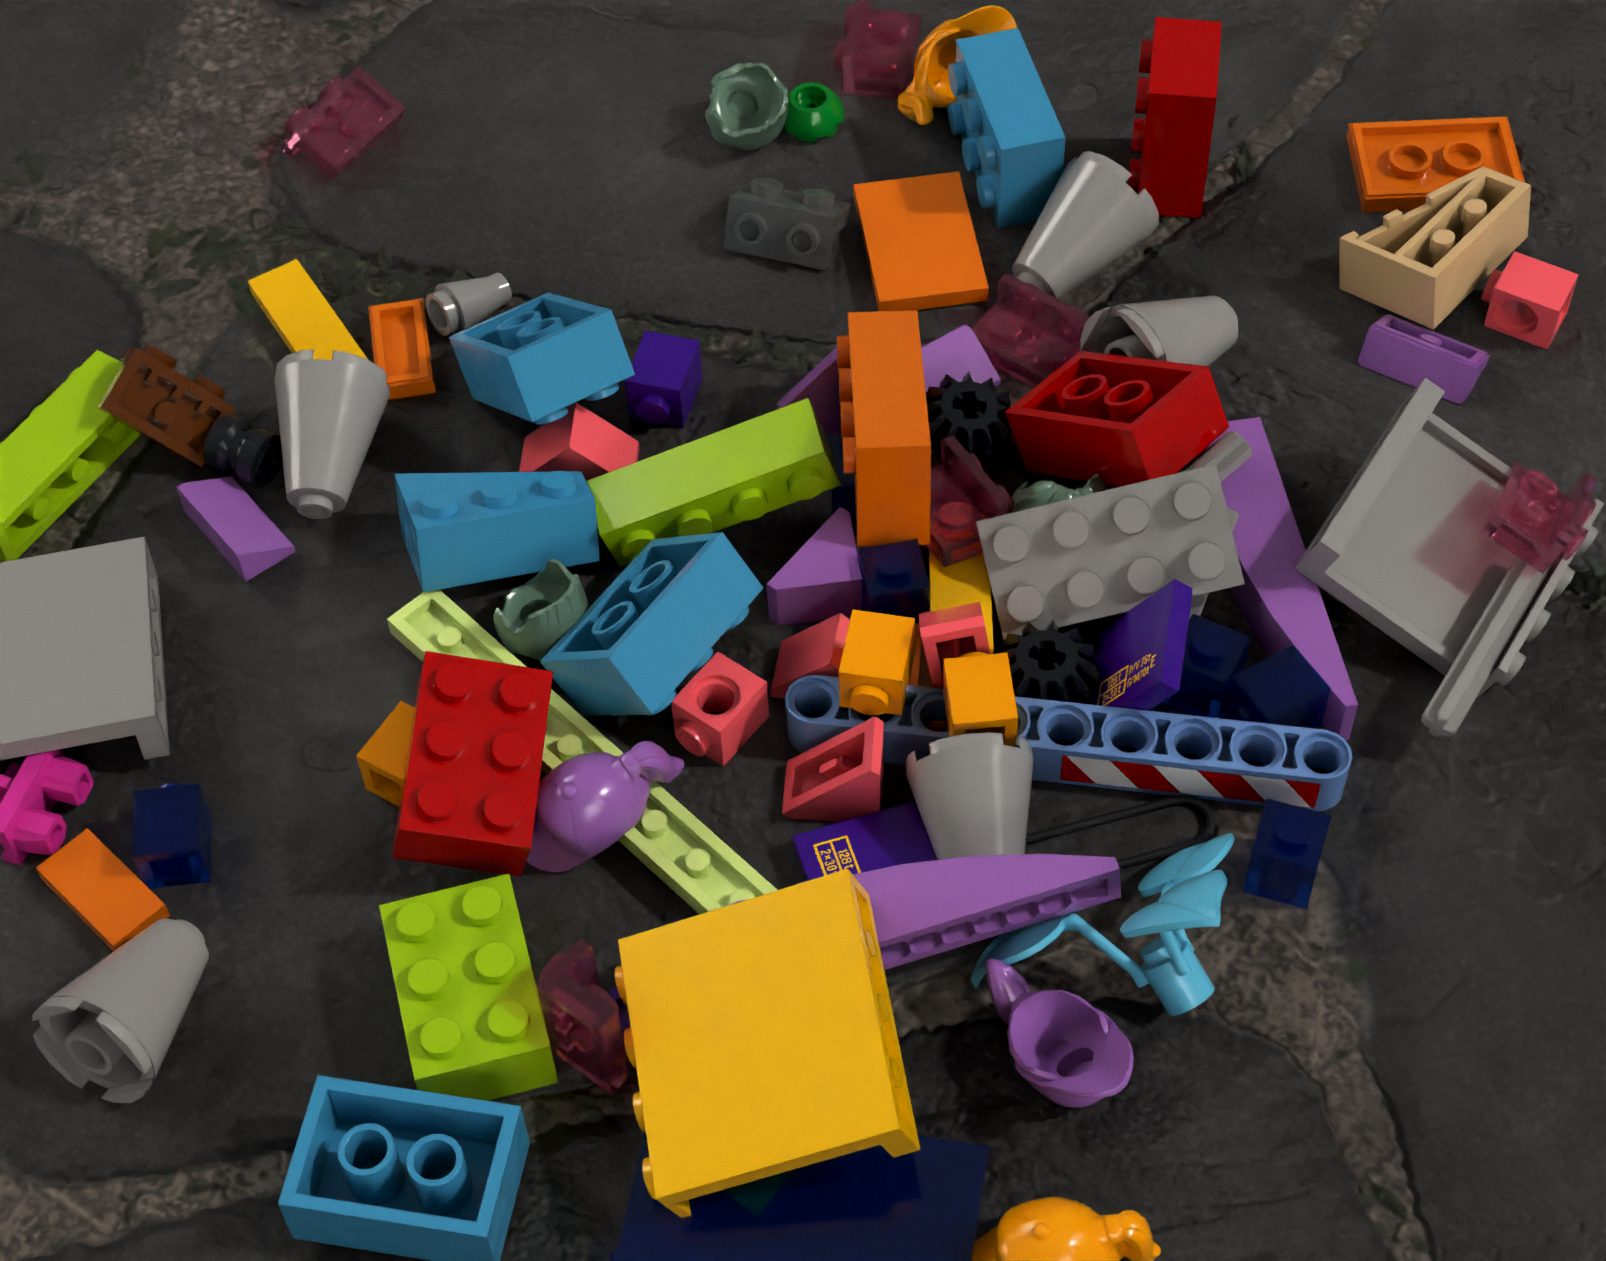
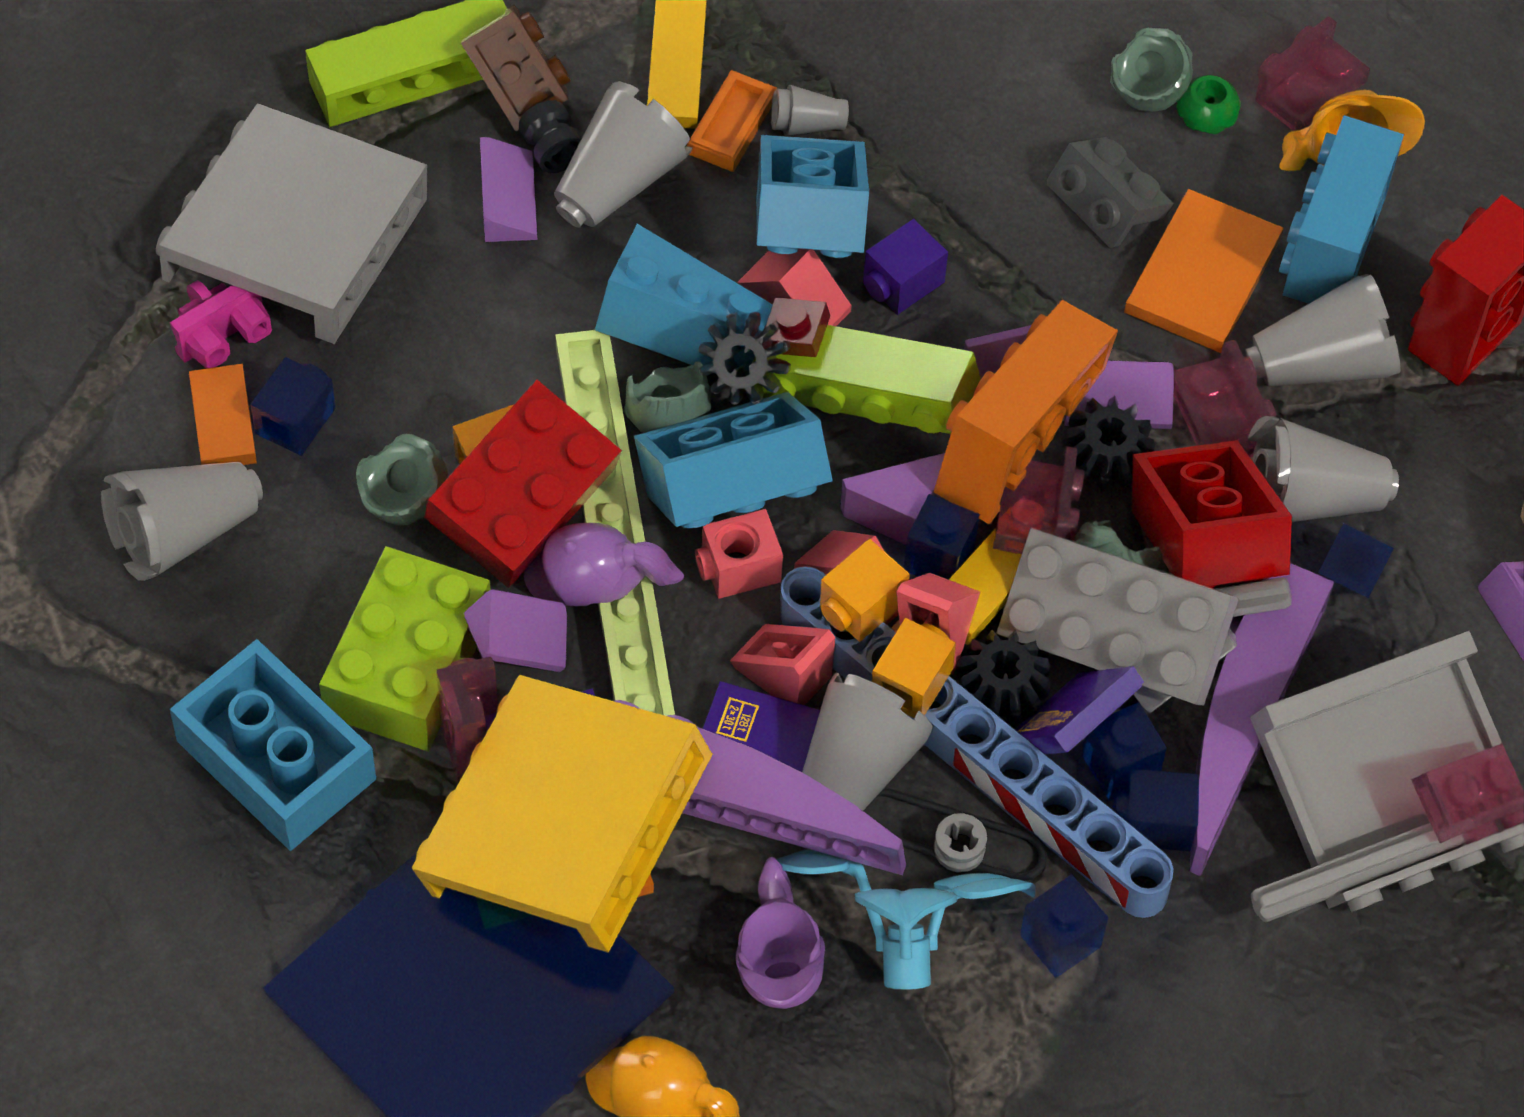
camera: 30 degrees right, 5 degrees up
(340, 837) = (401, 479): none -> sand green hair
(570, 904) = (519, 629): none -> medium lavender slope
(619, 476) = (800, 324): none -> plate
(619, 525) = (729, 343): none -> black gear
(1144, 830) = (955, 825): none -> light grey bush
(1259, 388) = (1356, 559): none -> clear blue brick

